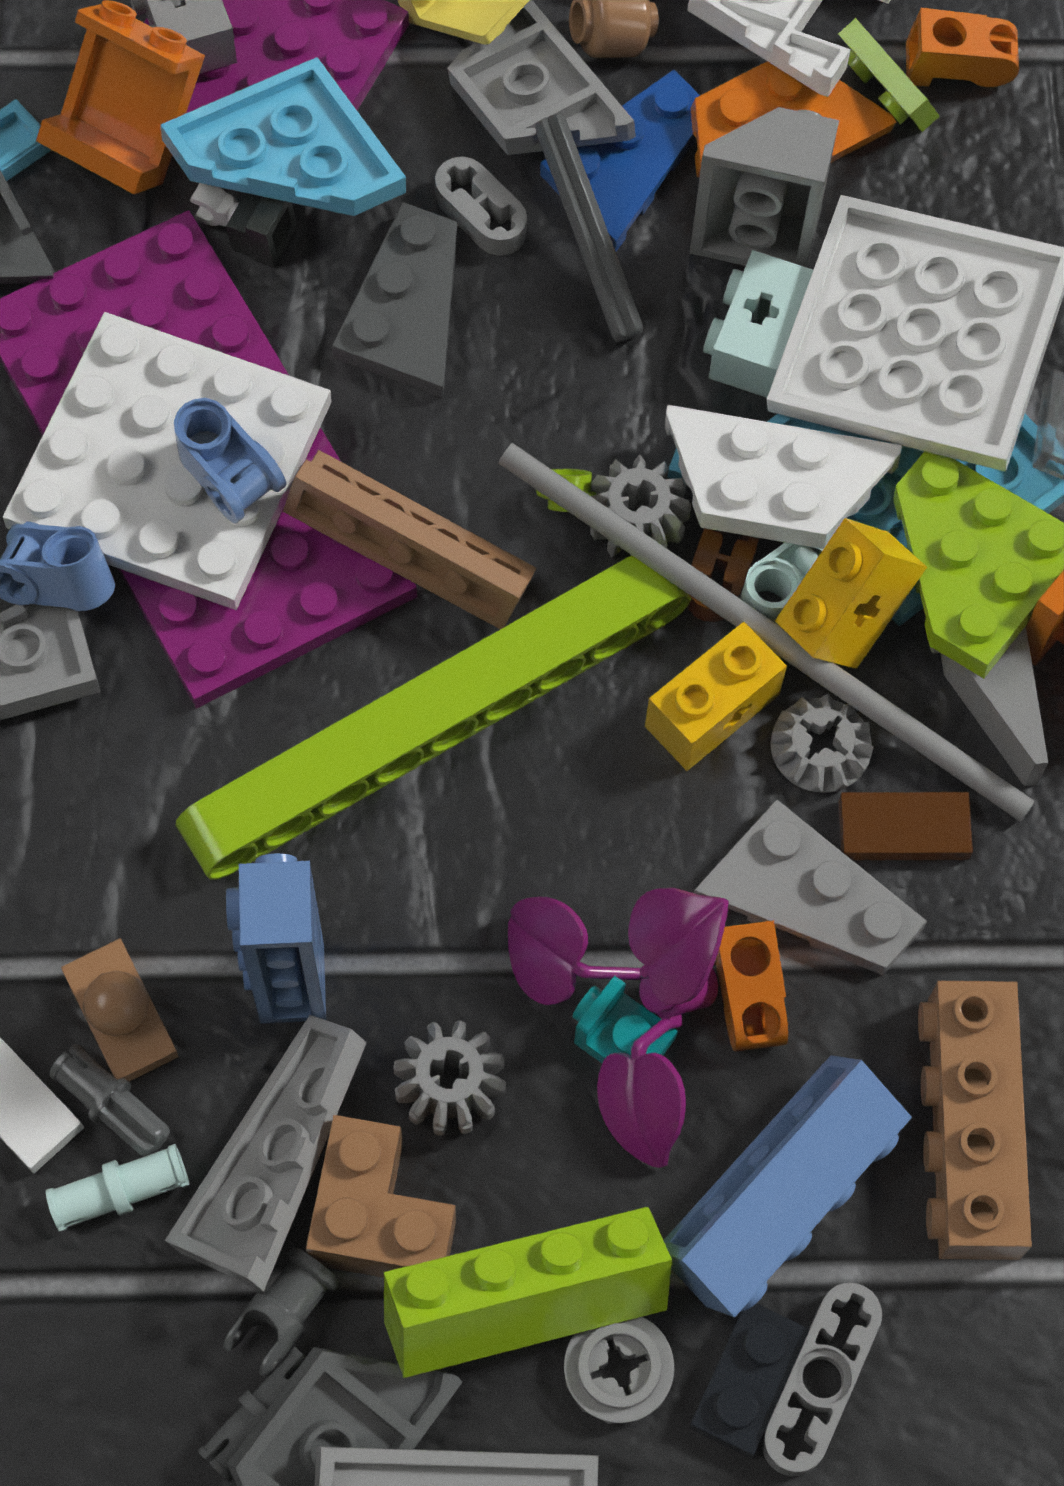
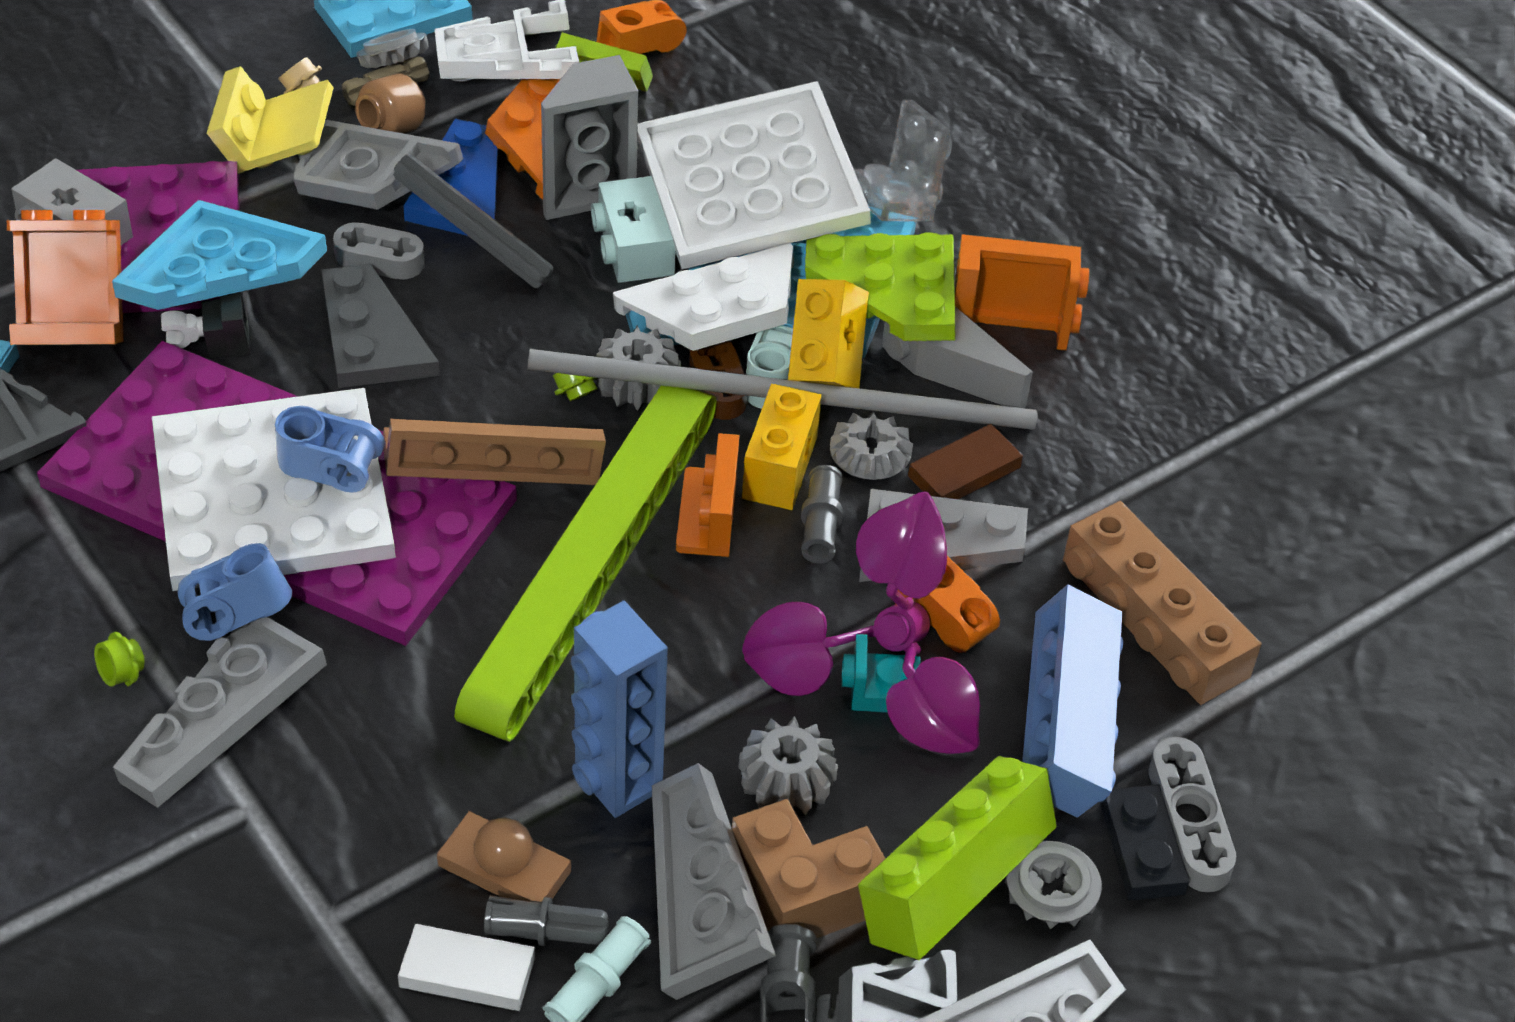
camera: 35 degrees left, 20 degrees down
(593, 722) = (709, 502): none -> orange bracket
(703, 800) = (821, 514): none -> dark grey pin

